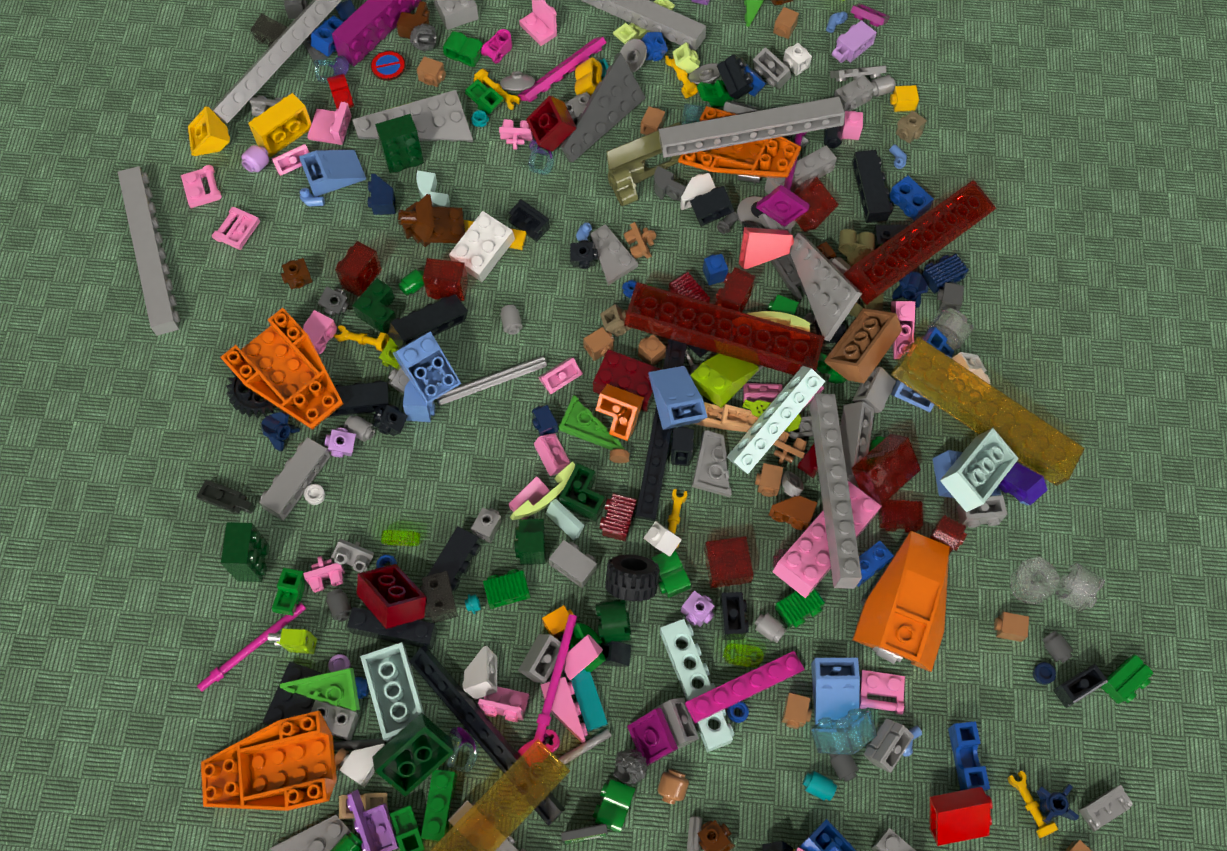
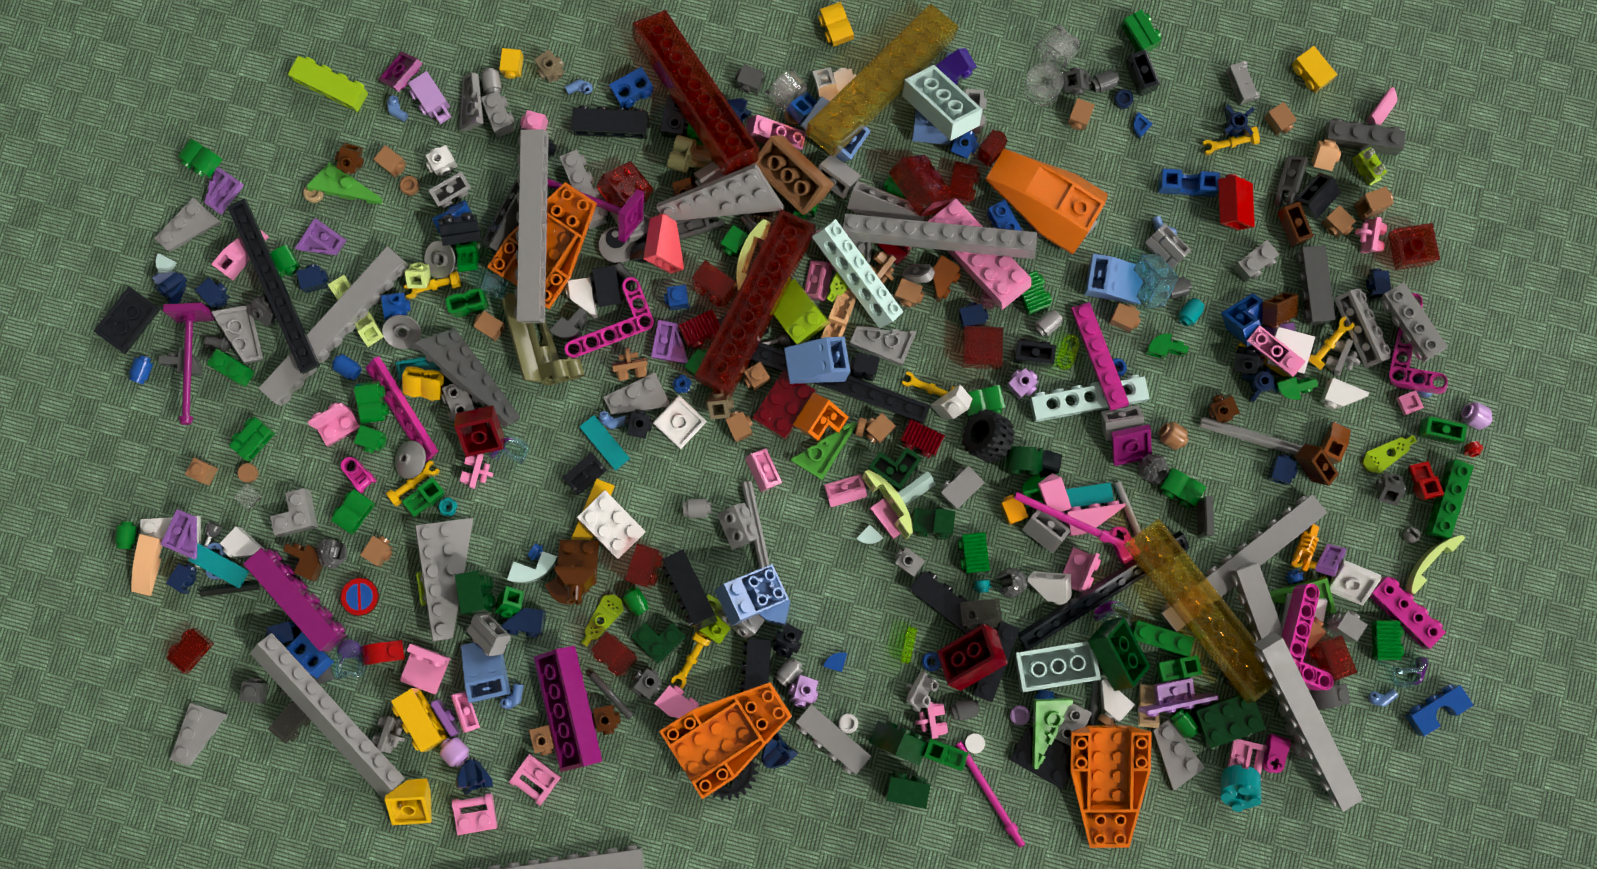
camera: 75 degrees left, 15 degrees up
(224, 497) = (838, 811): pearl dark grey hinge -> none
(234, 175) = (473, 776): none -> dark blue brick
(273, 227) = (542, 740): none -> medium nougat brick
(289, 143) = (446, 717): none -> medium lavender plate
(294, 541) = (899, 742): none -> dark green brick
(295, 640) = (995, 752): lime piece -> none
(301, 238) = (567, 708): none -> magenta brick
(305, 621) = (974, 743): none -> white tile
(320, 279) = (611, 695): none -> dark grey bar
(364, 163) = (488, 634): none -> light grey brick
(375, 472) = (836, 661): none -> blue tile
(397, 176) = (509, 602): none -> green brick
(399, 264) = (609, 615): none -> lime piece
(450, 191) = (535, 552): none -> blue plate
(480, 634) = (1012, 582): none -> dark grey piece
(498, 357) = (738, 526): none -> light grey brick
(509, 484) = (869, 536): none -> light aqua tile
(530, 50) = (370, 439): none -> green brick
(544, 420) = (812, 492): dark blue brick -> none
(561, 234) = (604, 442): none -> teal tile
(563, 43) = (371, 402): none -> green brick
(591, 23) = (346, 367): none -> blue brick
(593, 292) = (679, 422): none -> white tile
(621, 474) = (879, 428): none -> medium nougat brick
(668, 268) = (668, 343): none -> medium lavender wing
(669, 99) = (471, 301): none -> green brick
(672, 223) = (617, 327): none -> dark pink beam
(760, 547) = (973, 315): none -> dark blue brick
(769, 42) = (409, 185): none -> medium nougat tile
(774, 756) = (1162, 345): none -> green brick
(882, 685) = (1113, 236): bright pink plate -> none
(943, 505) = (964, 151): none -> blue brick
(947, 270) = (723, 76): dark blue brick -> none
(1020, 697) = (1141, 125): none -> blue tile
(1033, 366) = (836, 24): none -> yellow brick
(1047, 613) = (1076, 81): none -> dark grey brick

